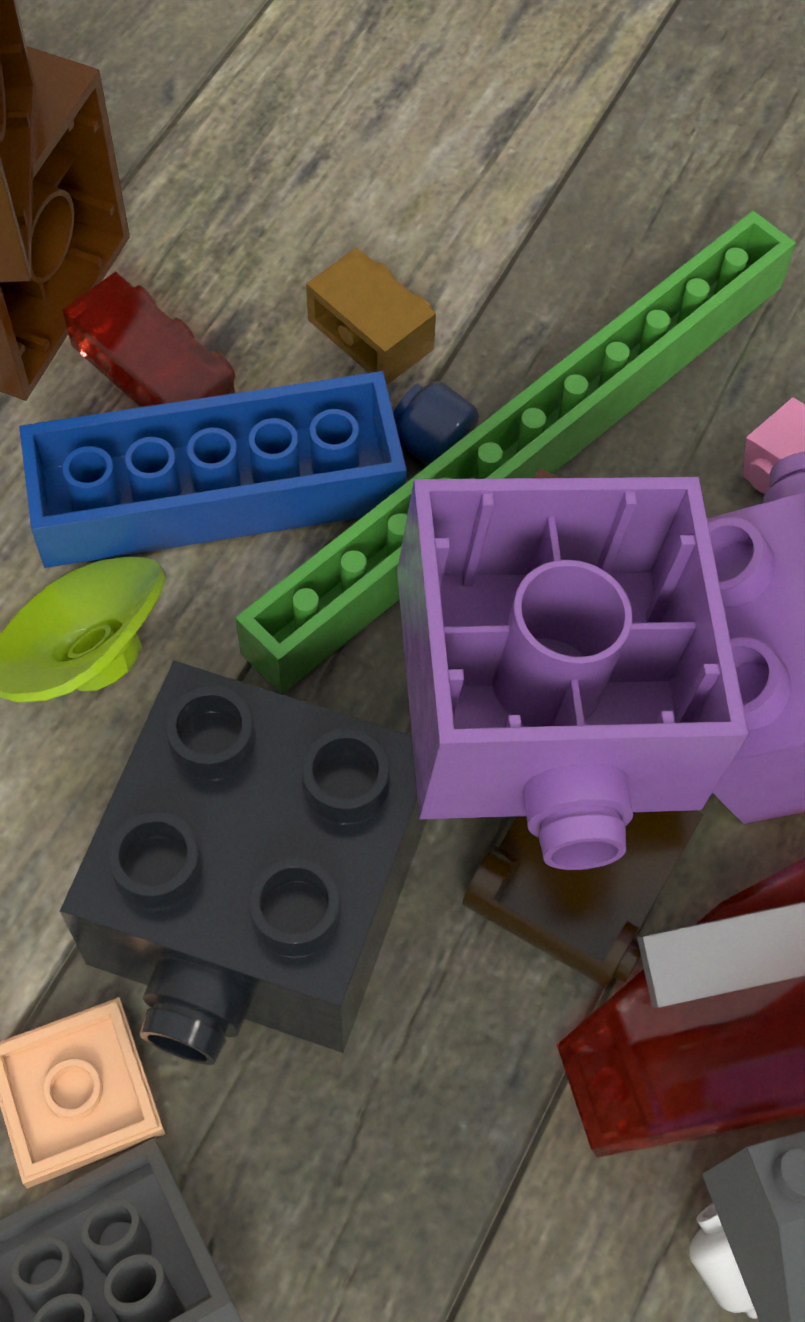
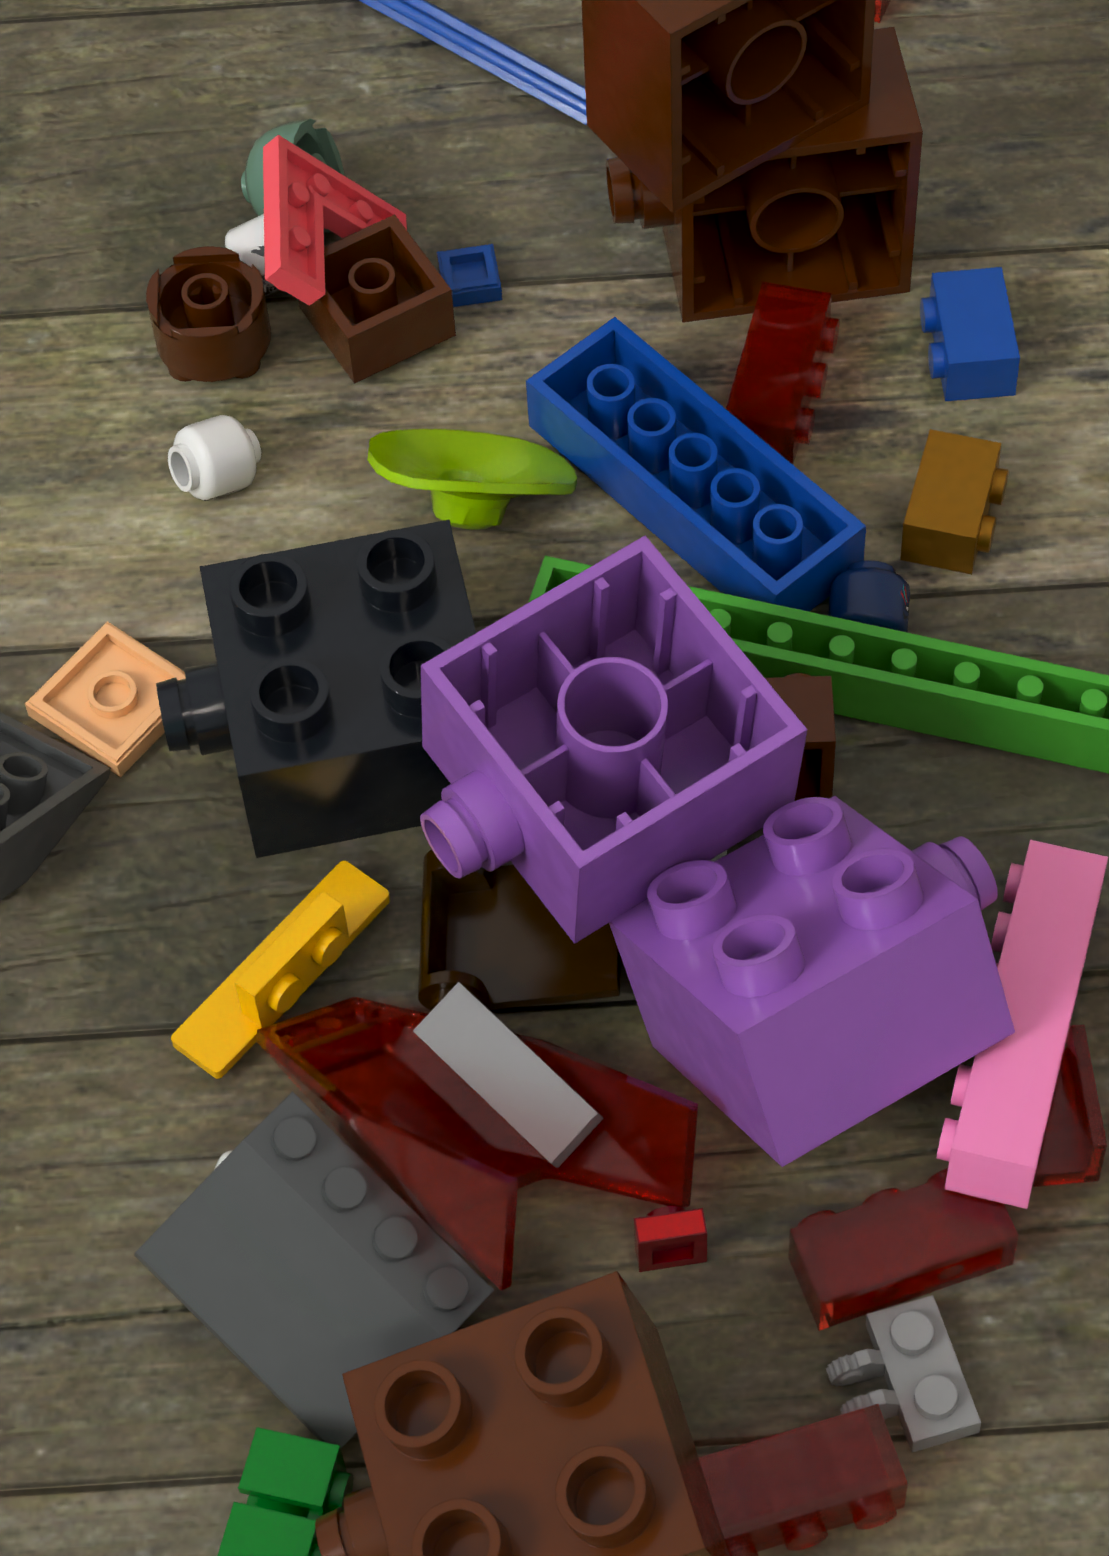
camera: 65 degrees right, 5 degrees down
(220, 213) = (972, 334): none -> blue brick
(499, 1094) = (280, 969): none -> yellow bracket

